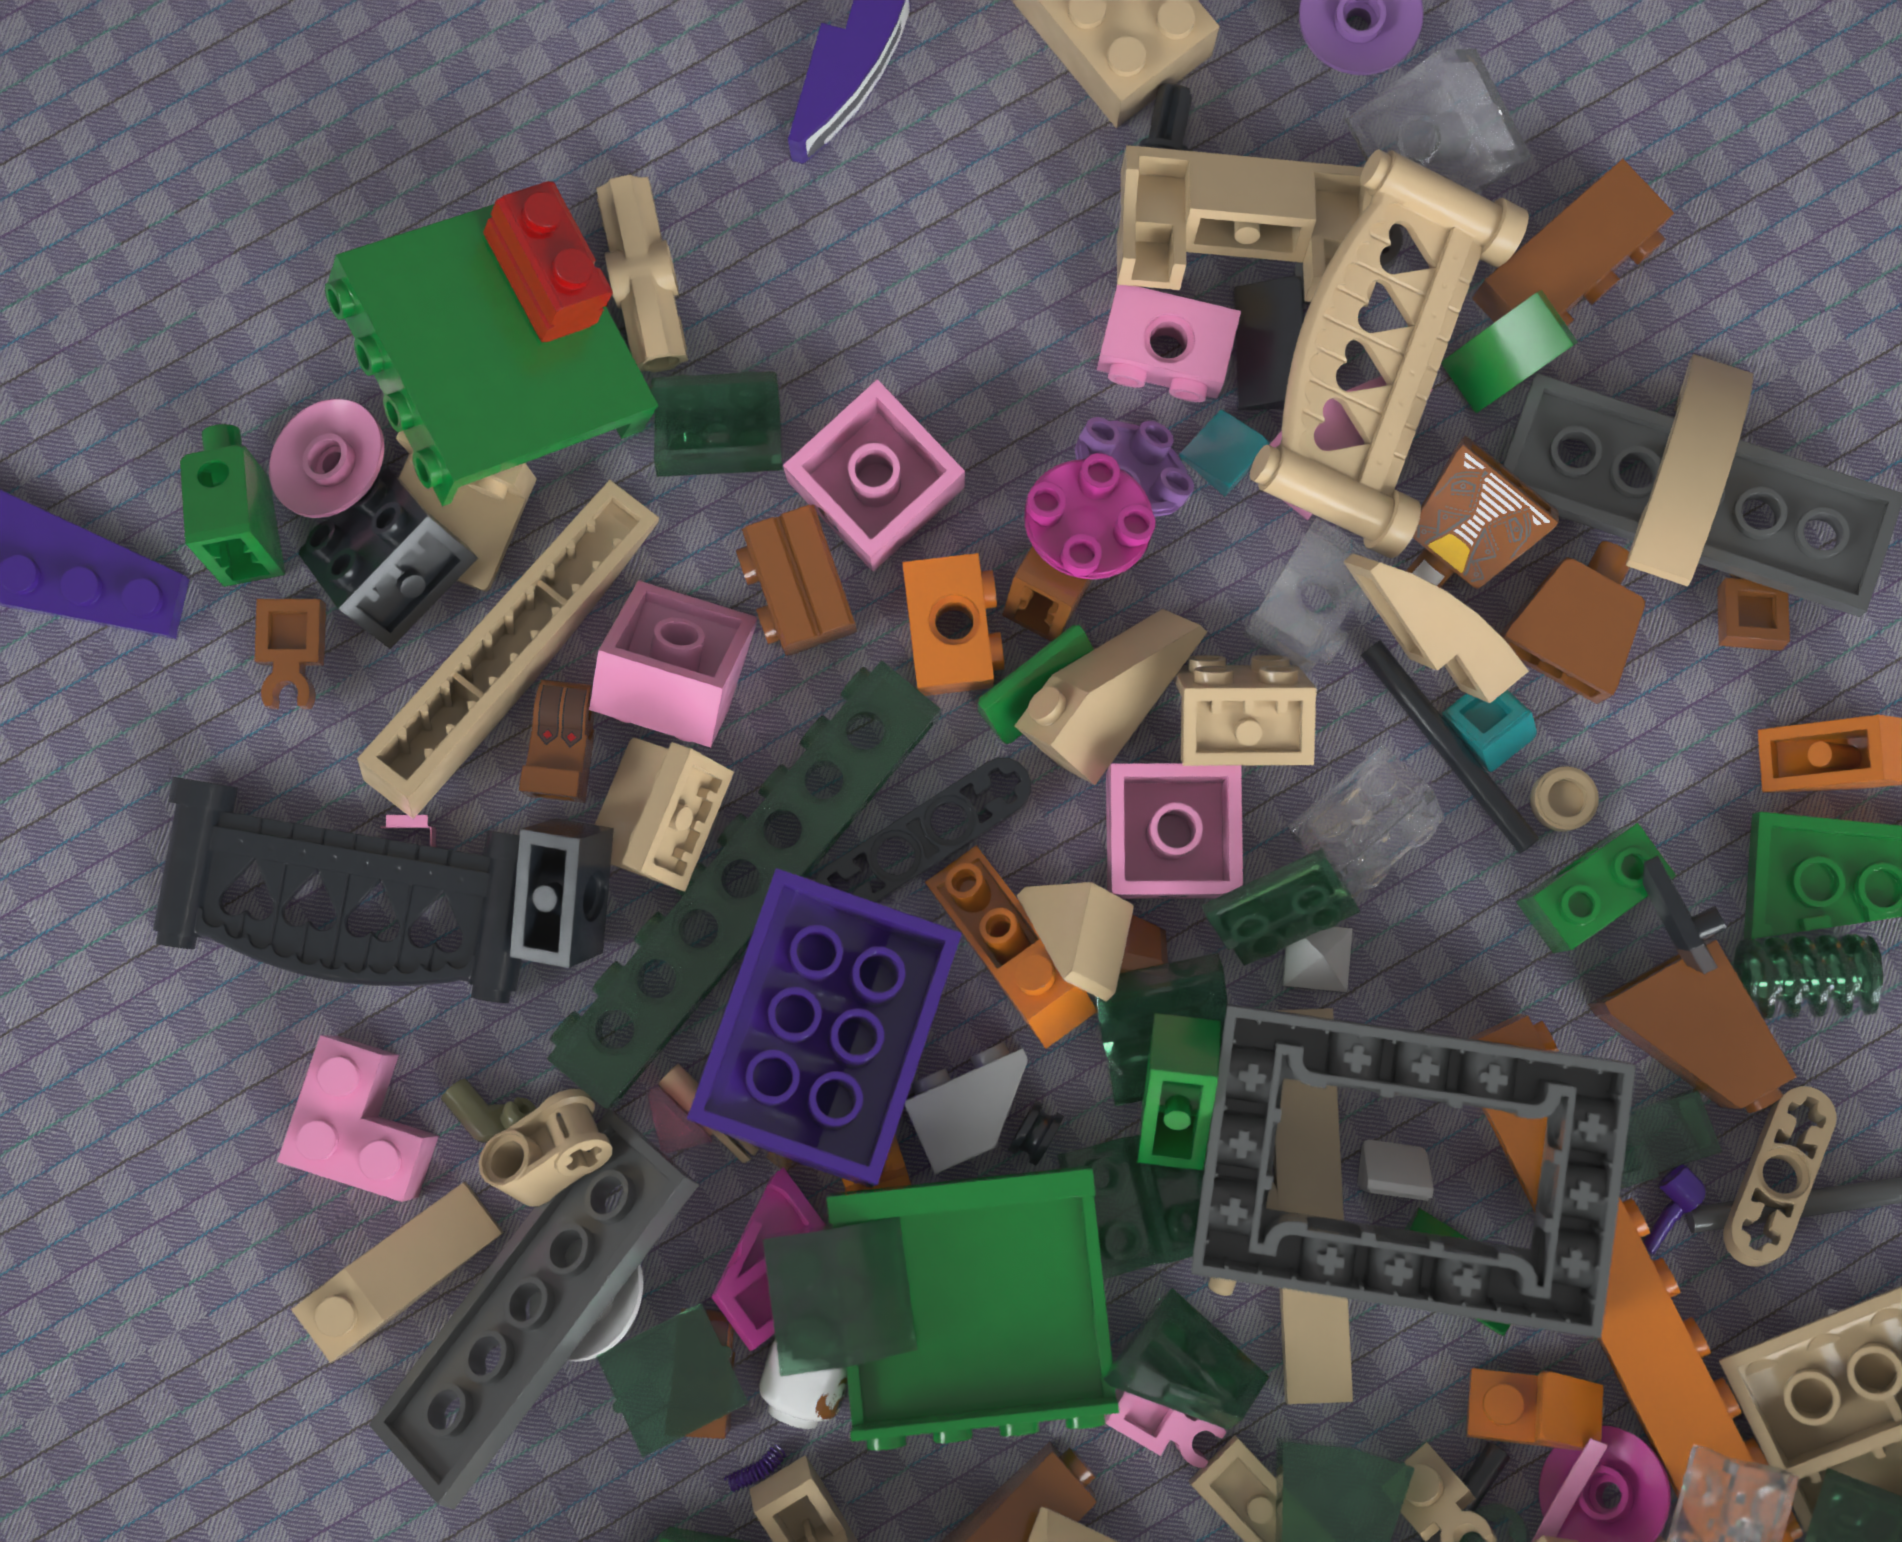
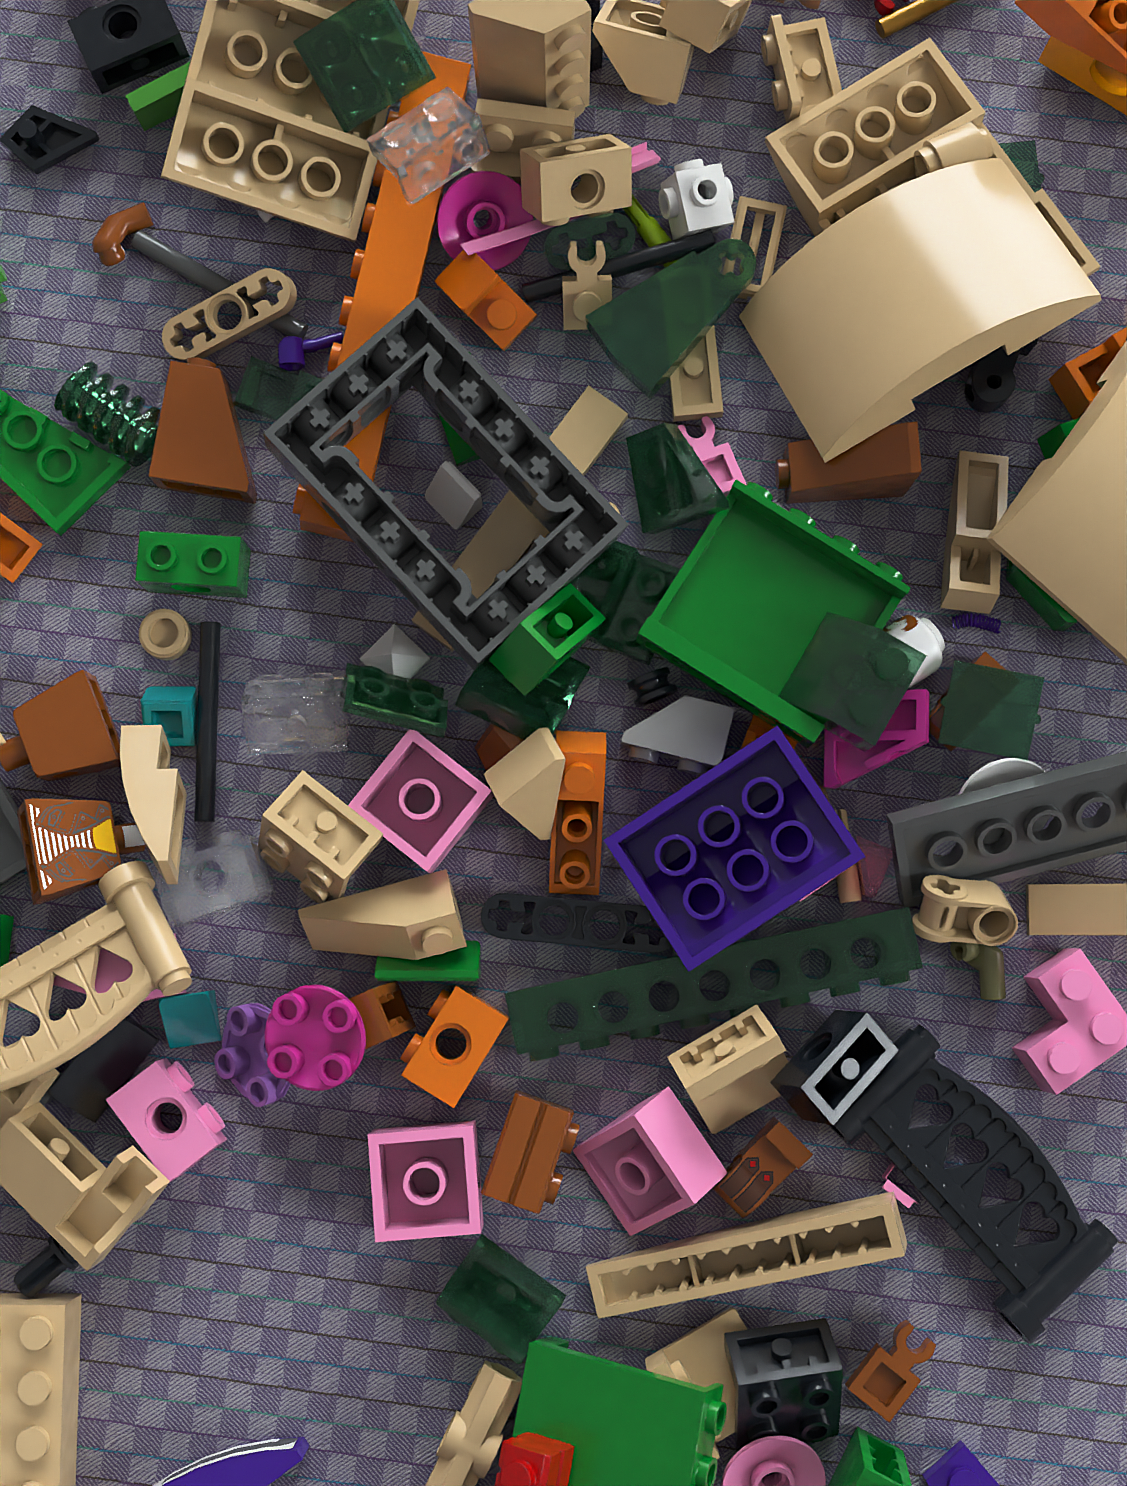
camera: 140 degrees left, 0 degrees up
(1684, 930) = (162, 495): black piece -> none

